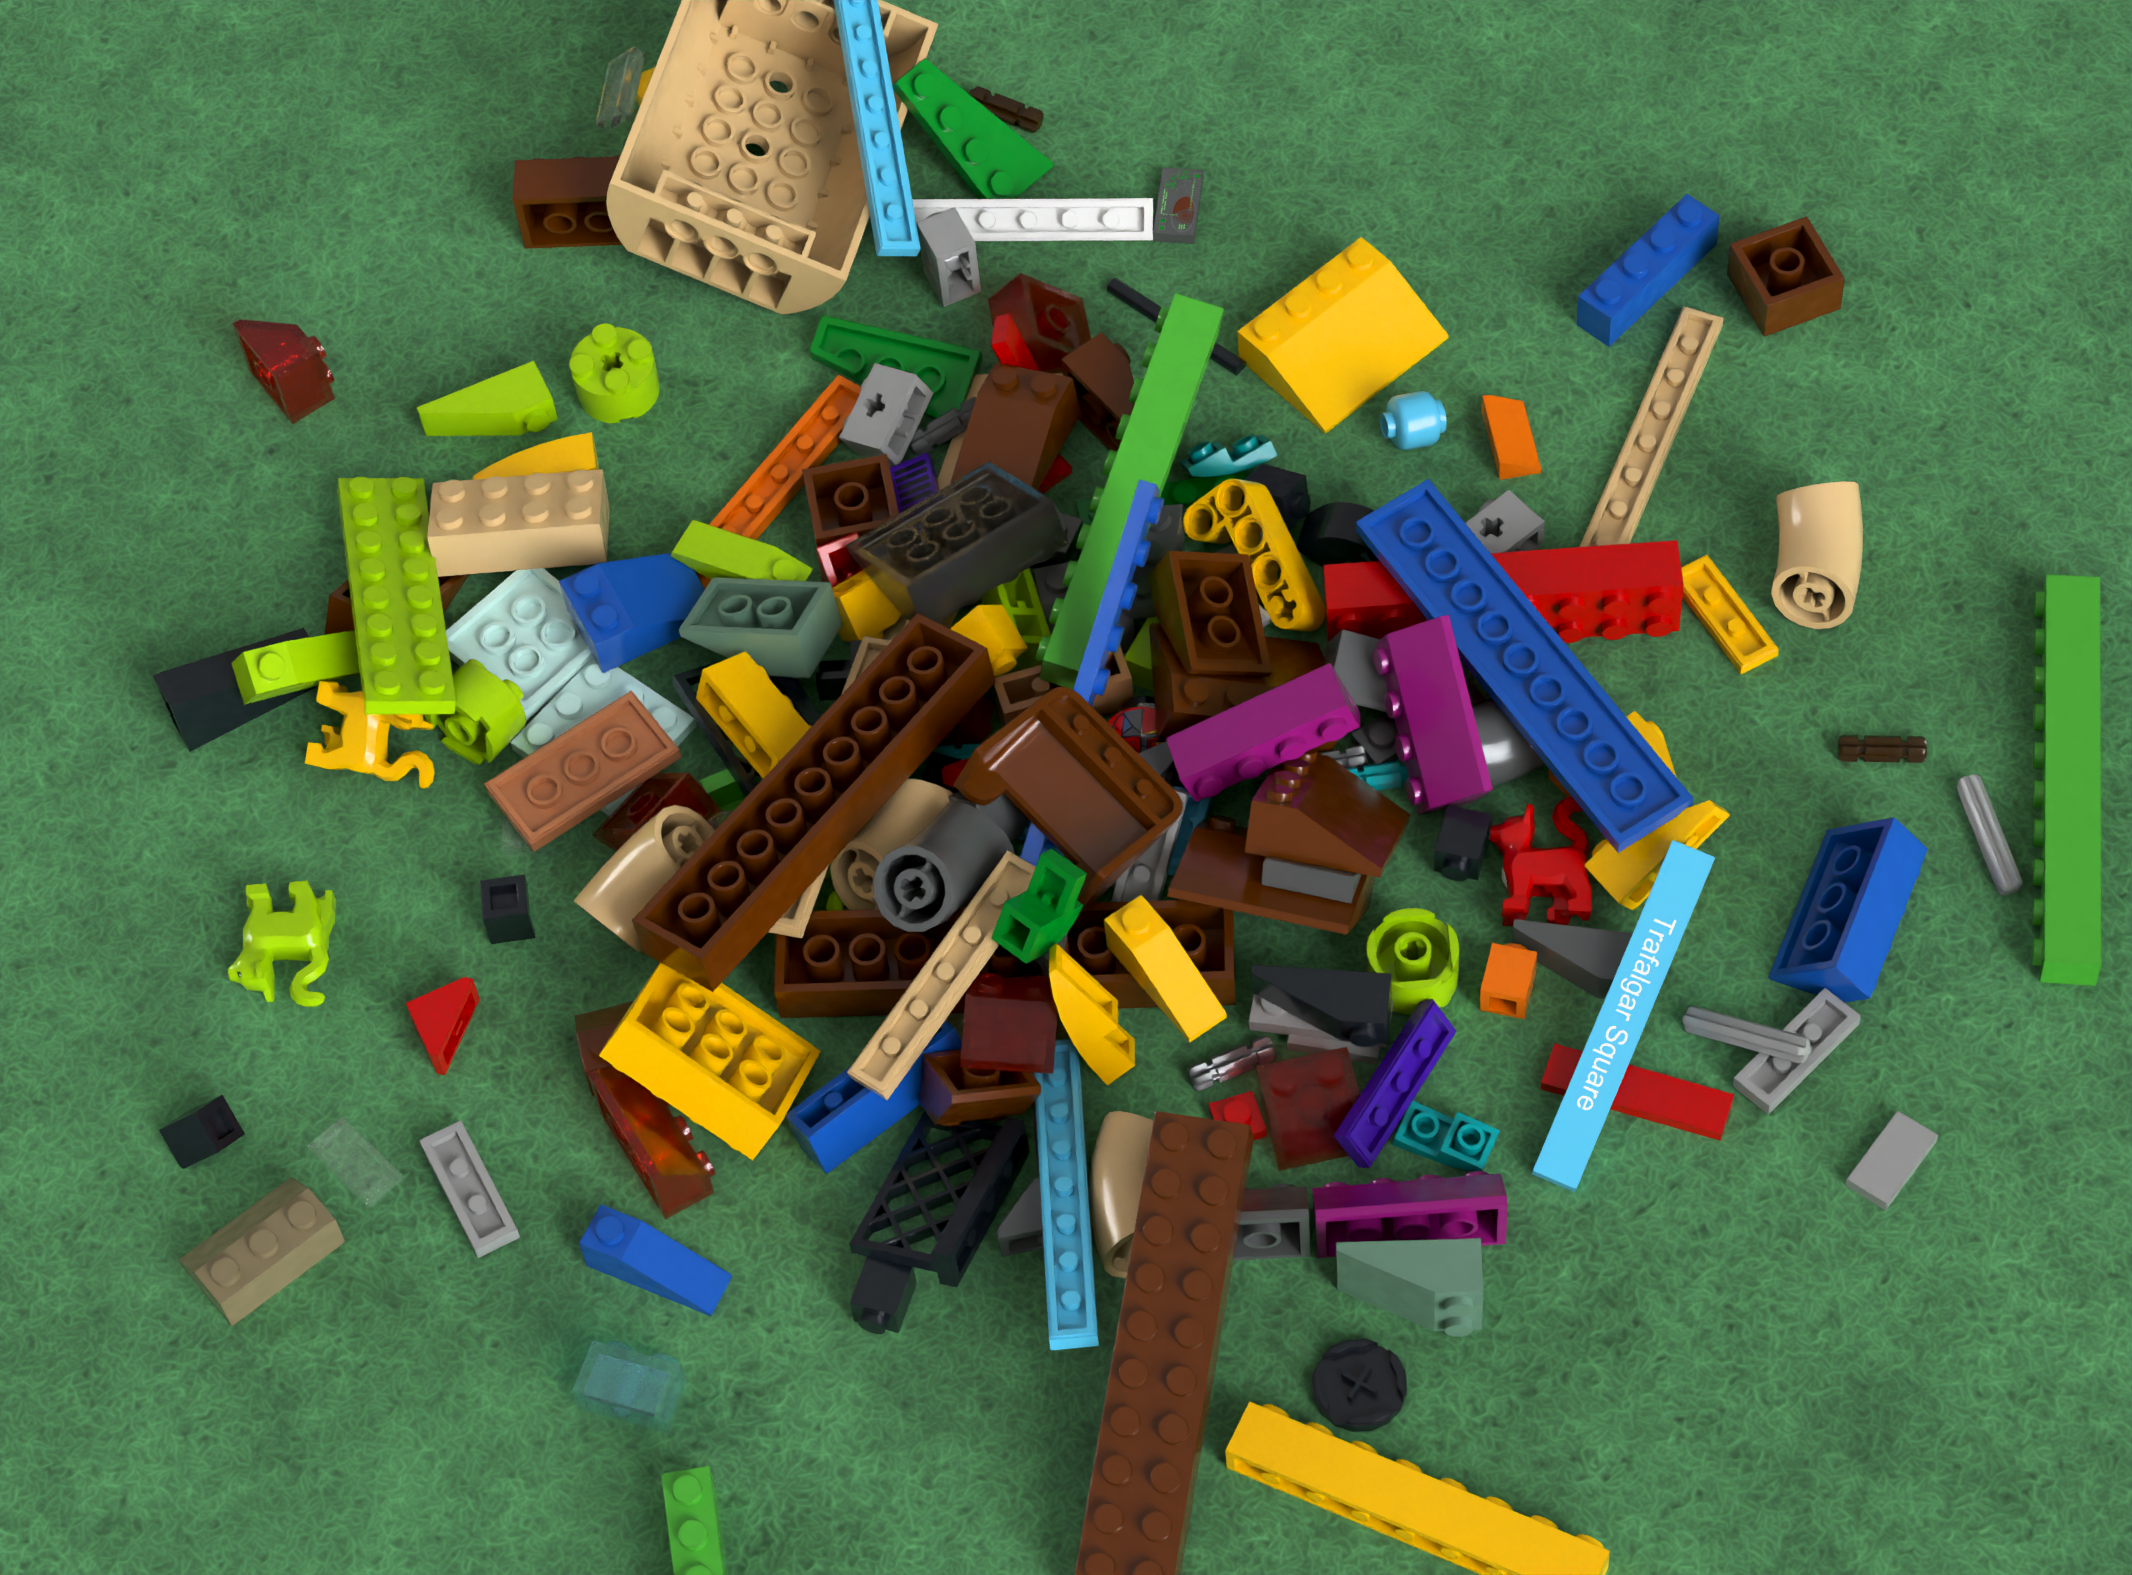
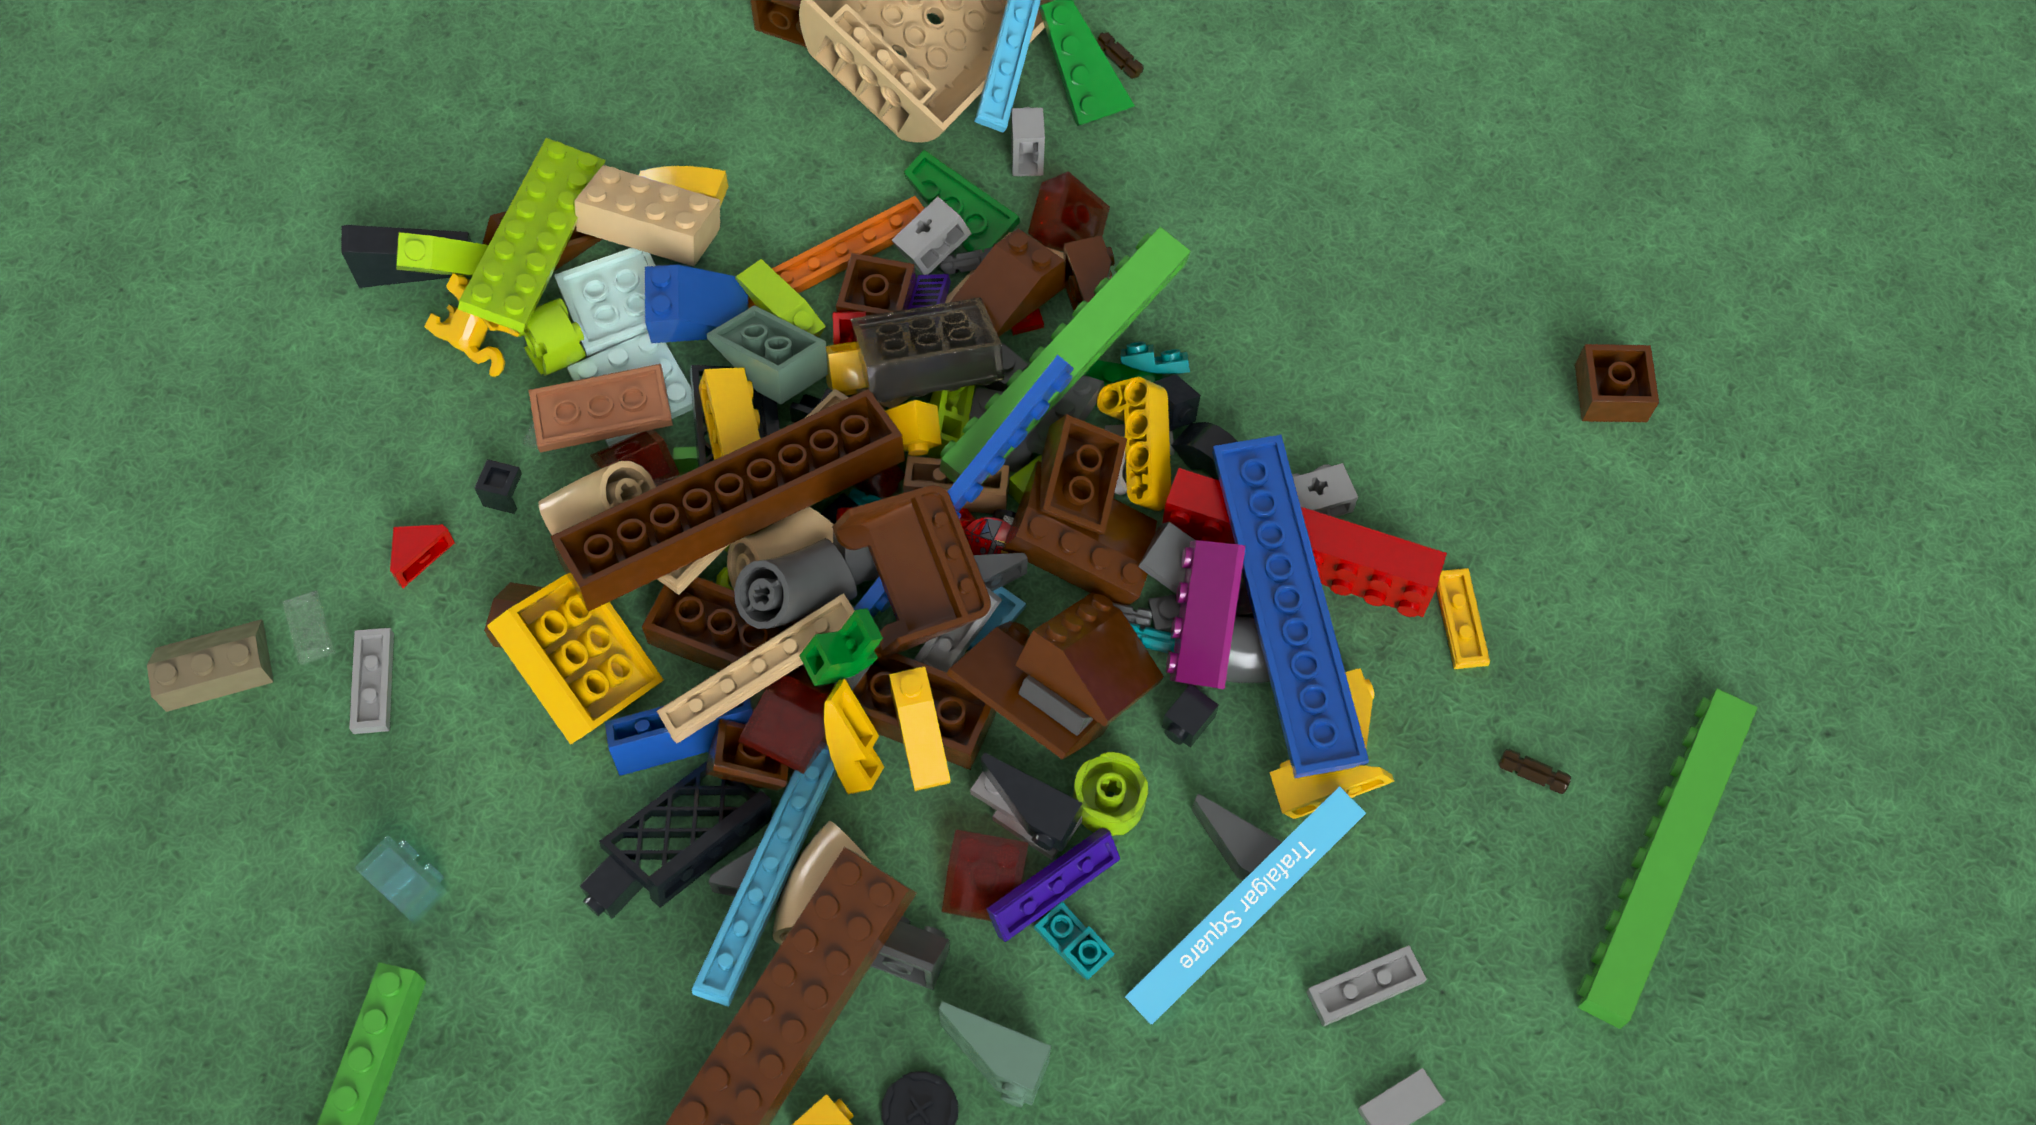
camera: 15 degrees right, 5 degrees up
(202, 1132) = (218, 561): black panel -> none
(285, 936) = (341, 441): lime animal -> none
(286, 366) = (552, 49): clear red slope -> none
(494, 407) = (680, 129): lime slope -> none
(614, 374) = (765, 137): lime brick -> none
(652, 1261) = (466, 791): blue slope -> none
(653, 1141) = (505, 704): clear red slope -> none
(1010, 345) = (1035, 222): red tile -> none
(1048, 218) = (1107, 140): white tile -> none
(1151, 310) = (1149, 227): black bar -> none
(1178, 205) = (1206, 166): dark grey tile -> none
(1231, 1063) = (946, 814): dark grey axle -> none
(1242, 1110) = (929, 860): red plate -> none
(1263, 732) = (1074, 578): magenta slope -> none
(1340, 335) = (1275, 302): yellow slope -> none
(1411, 1210) = (1016, 991): magenta slope -> none
(1413, 420) = (1298, 384): medium azure head -> none
(1508, 980) = (1175, 837): orange brick -> none
(1510, 437) = (1364, 423): orange slope -> none
(1544, 871) = (1239, 763): red animal -> none
(1647, 270) = (1517, 339): blue brick -> none
(1651, 1095) = (1241, 973): red tile -> none
(1654, 429) = (1468, 461): tan tile -> none
(1747, 1034) = (1333, 958): light grey axle -> none
(1818, 553) = (1550, 603): tan brick -> none
(1850, 910) = (1454, 890): blue slope -> none
(1989, 835) = (1587, 873): light grey axle -> none

